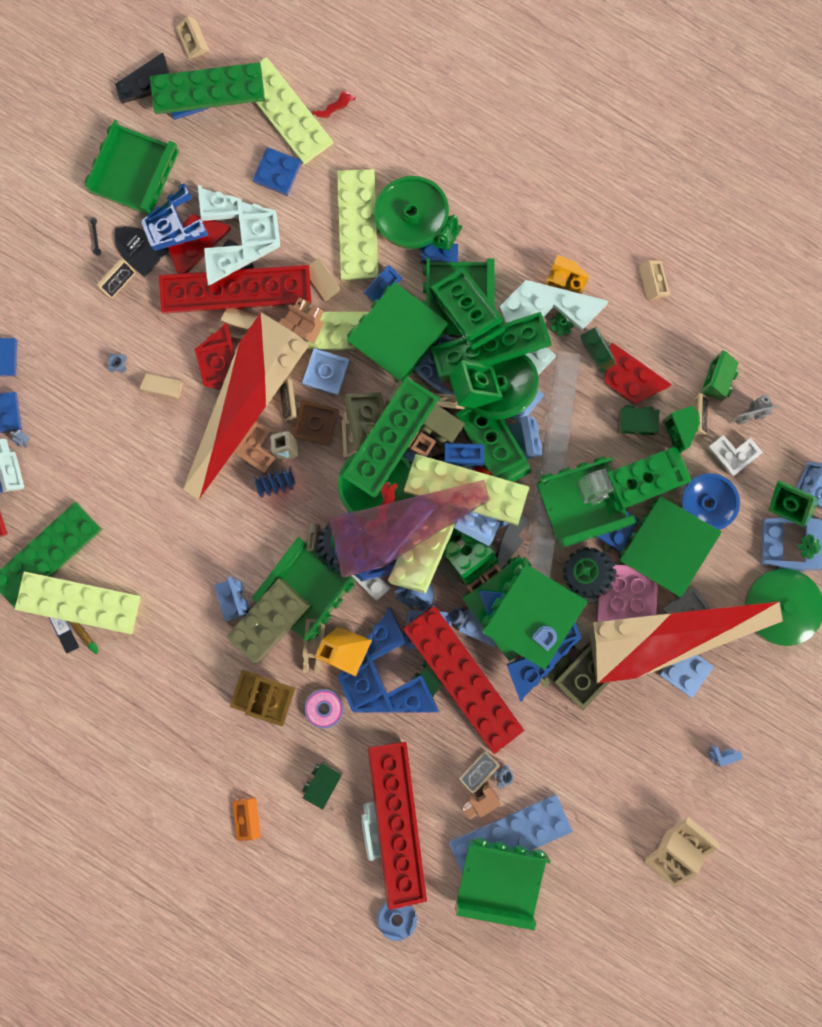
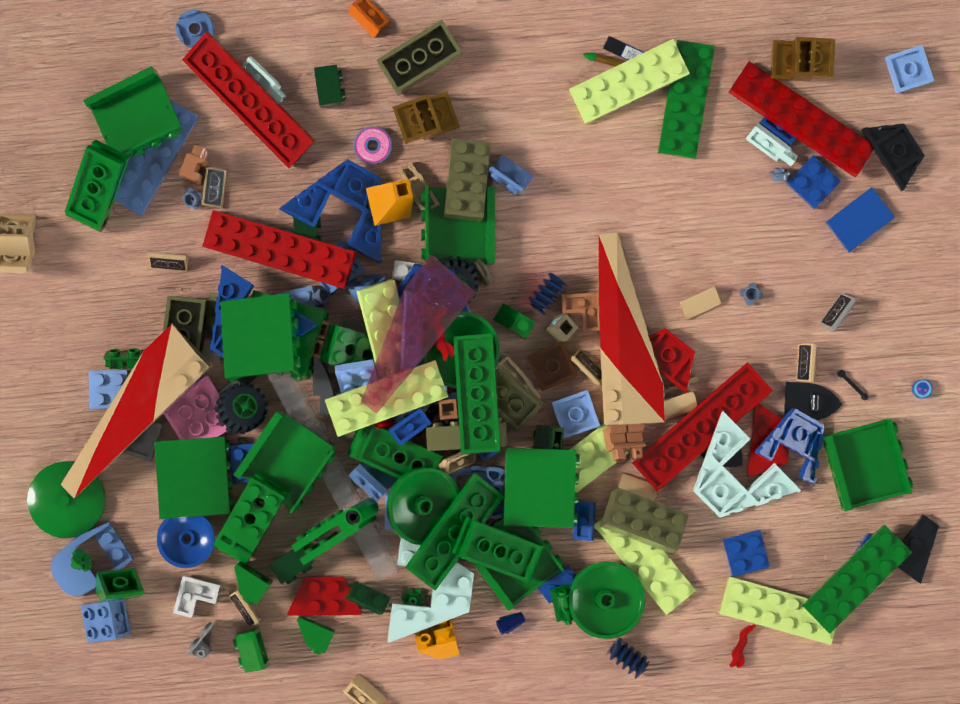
camera: 145 degrees right, 5 degrees up
(45, 194) = (921, 388): none -> tile
(61, 298) = (837, 312): none -> slope
(191, 37) = (907, 615): tan slope -> none
(230, 751) = (419, 57): none -> olive brick
(317, 479) = (514, 321): none -> green slope
(335, 248) = (644, 520): none -> olive brick
(362, 368) = (548, 437): none -> dark green brick
(428, 158) = (628, 657): none -> dark blue piece
(474, 384) = (442, 488): green slope -> none
(500, 251) = (510, 622): none -> clear blue cone
(545, 637) = (237, 326): medium blue tile -> none
(562, 739) = (168, 261): none -> slope
(575, 848) = (96, 185): none -> green hinge
(585, 416) = (349, 523): none -> green hinge
(595, 487) = (285, 477): clear brick -> none
(659, 352) = (315, 635): none -> green slope
(662, 692) = (115, 358): none -> green hinge
(728, 756) = (28, 344): medium blue bracket -> none

